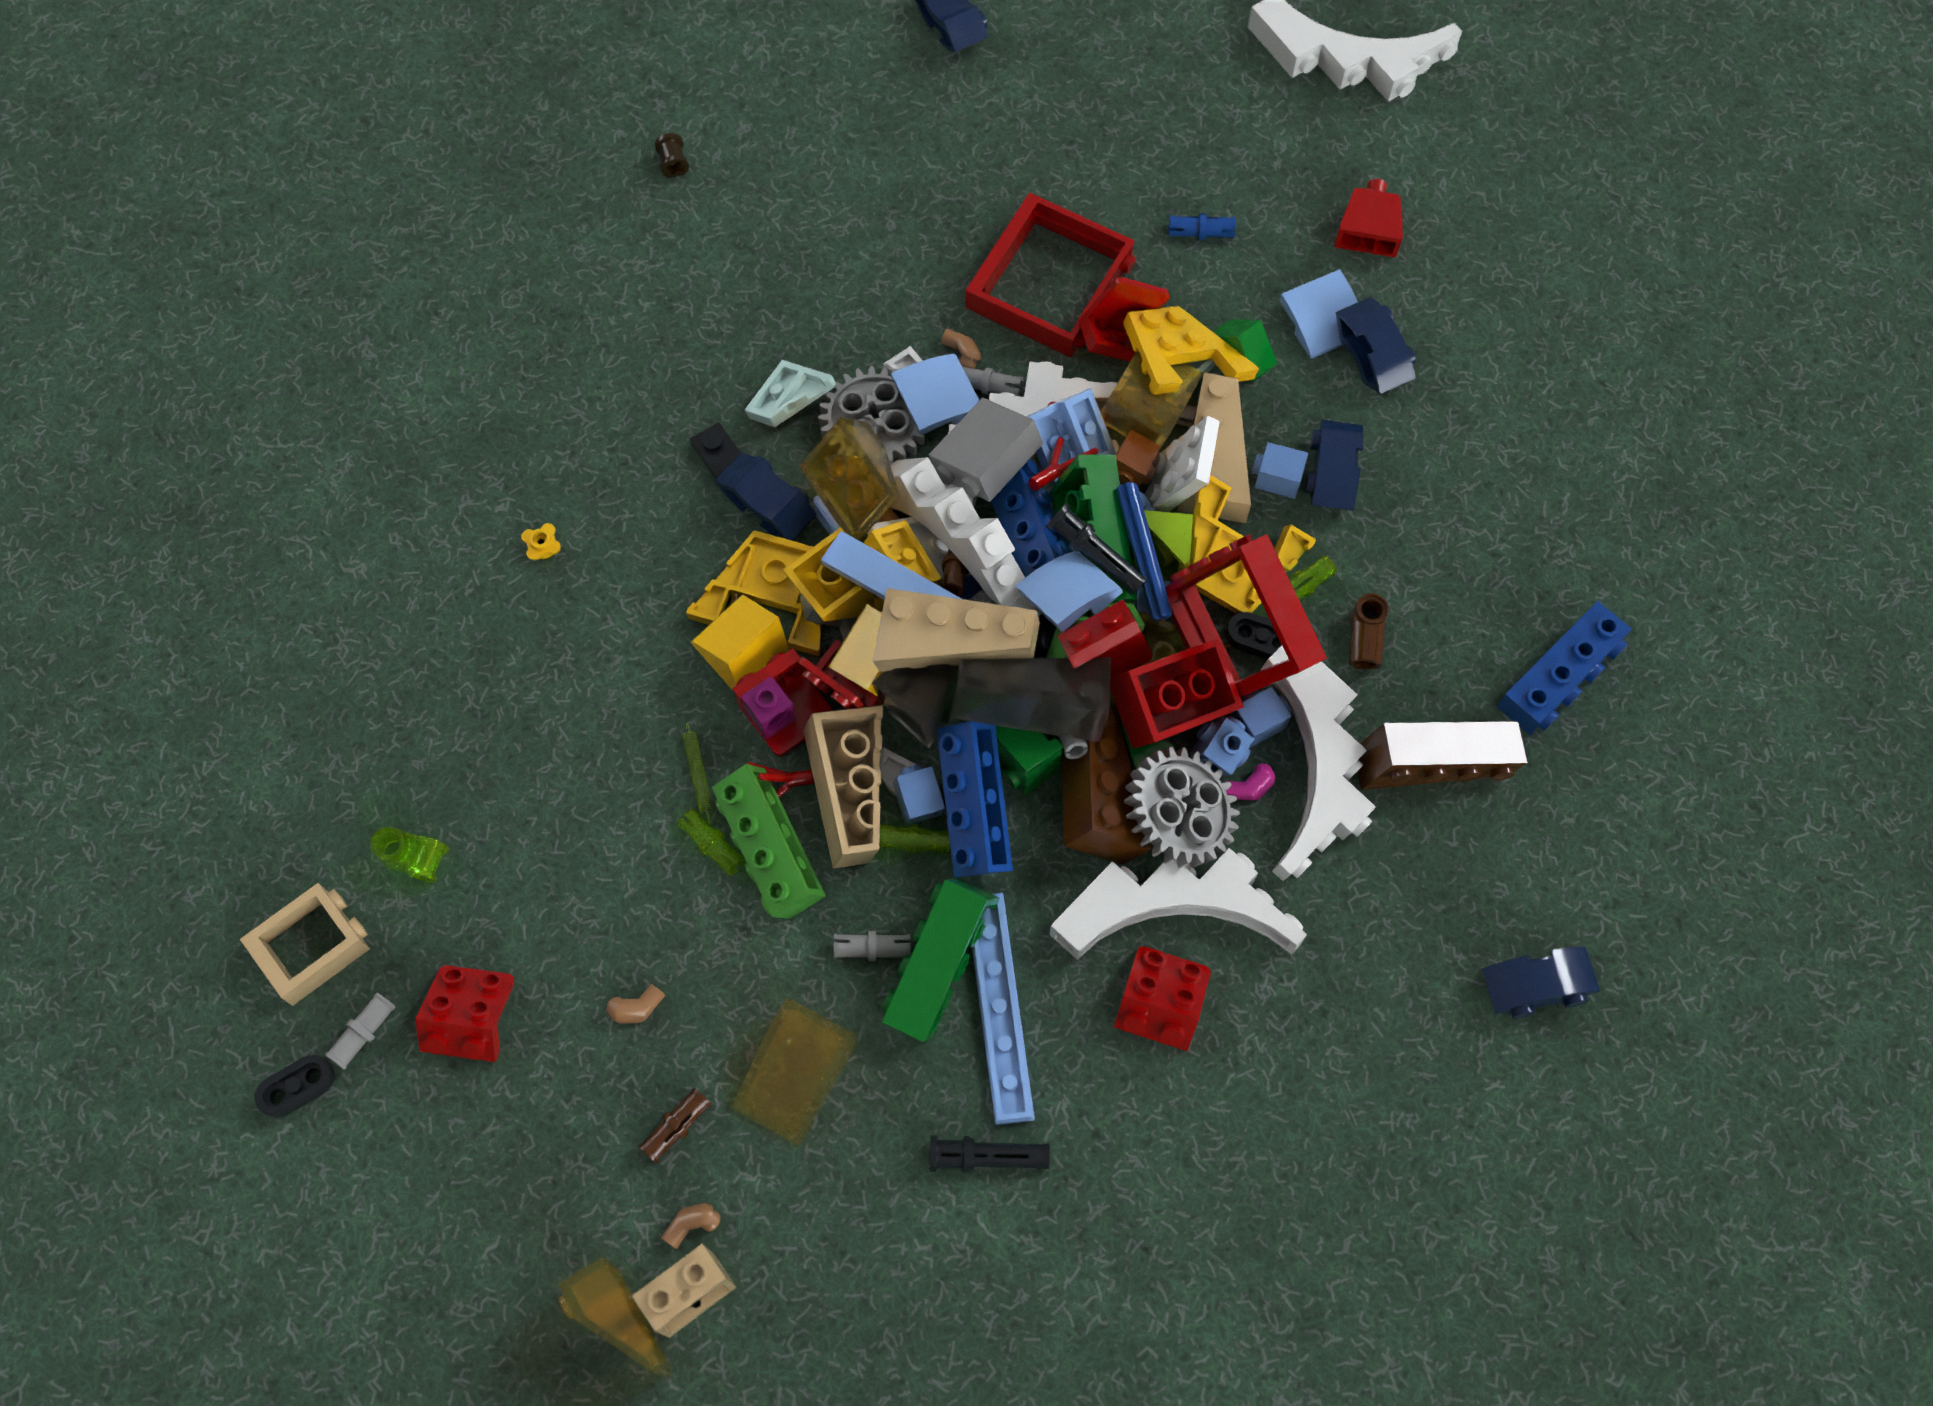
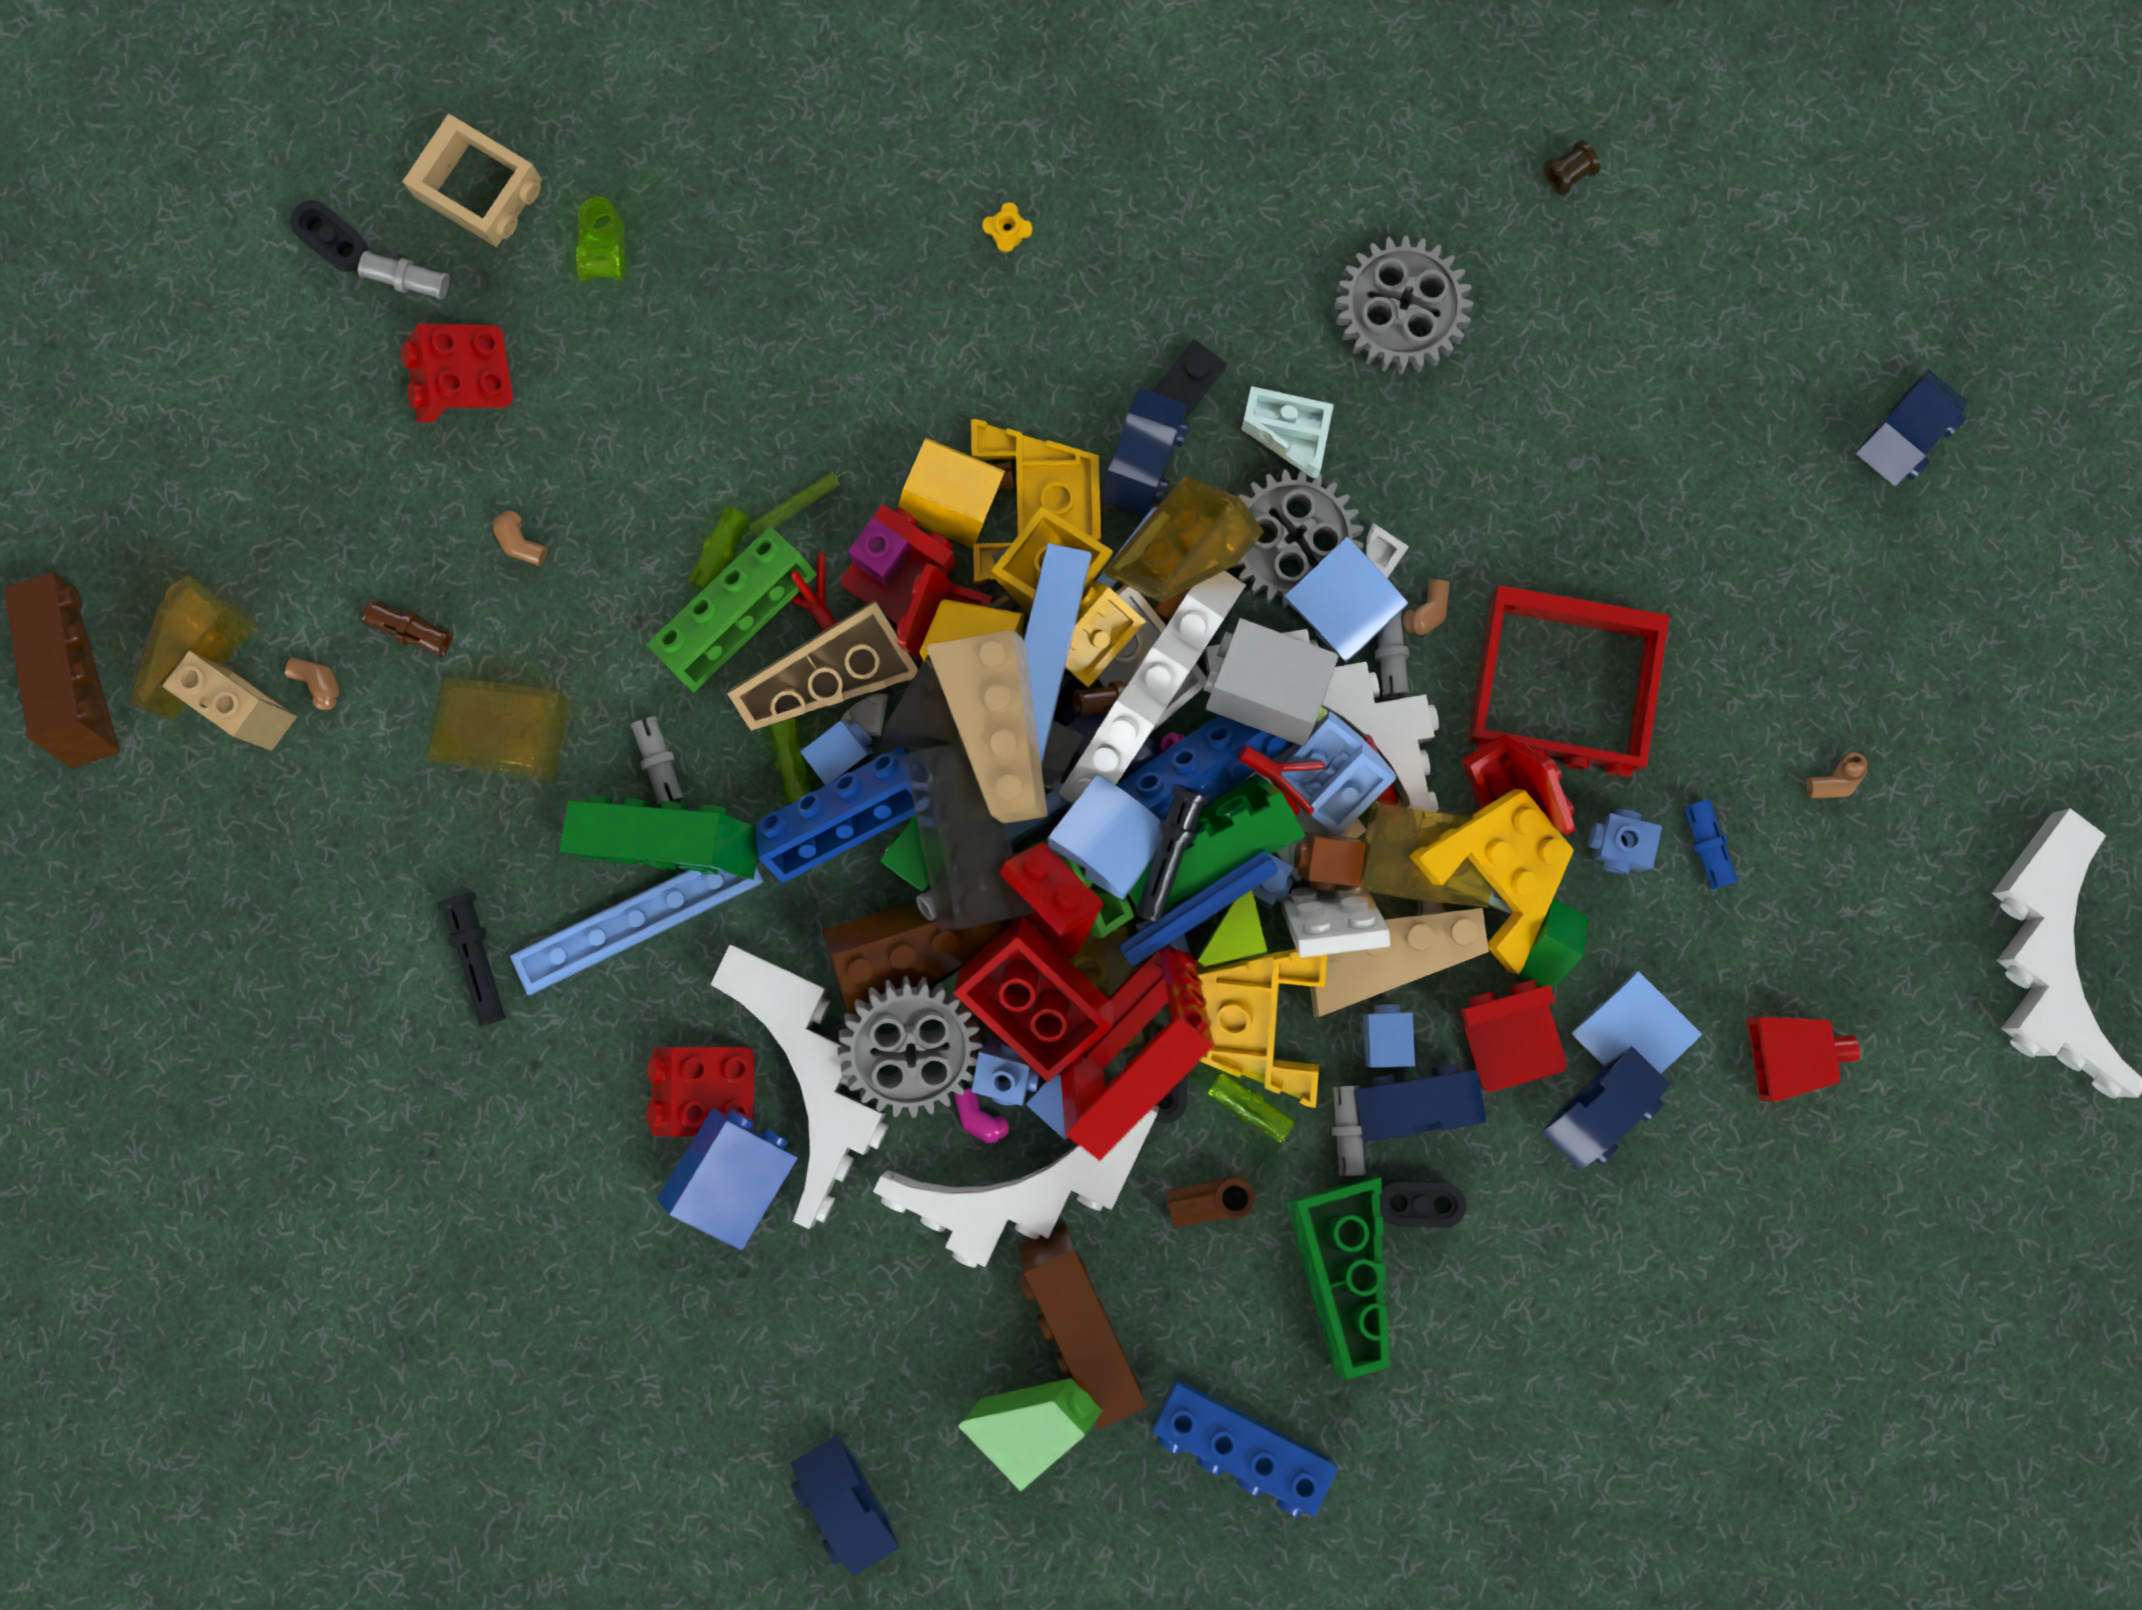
camera: 75 degrees right, 15 degrees up
(726, 291) = (1412, 269): none -> light grey gear
(1183, 134) = (1843, 779): none -> medium nougat arm
(1184, 273) = (1639, 841): none -> medium blue brick
(1244, 986) = (728, 1177): none -> brick
(1301, 390) = (1513, 1036): none -> red bracket
(1340, 522) = (1348, 1132): none -> light grey pin
(1410, 493) = (1419, 1204): none -> black plate
(1450, 554) = (1345, 1270): none -> green wedge
(1513, 810) = (1030, 1427): none -> slope

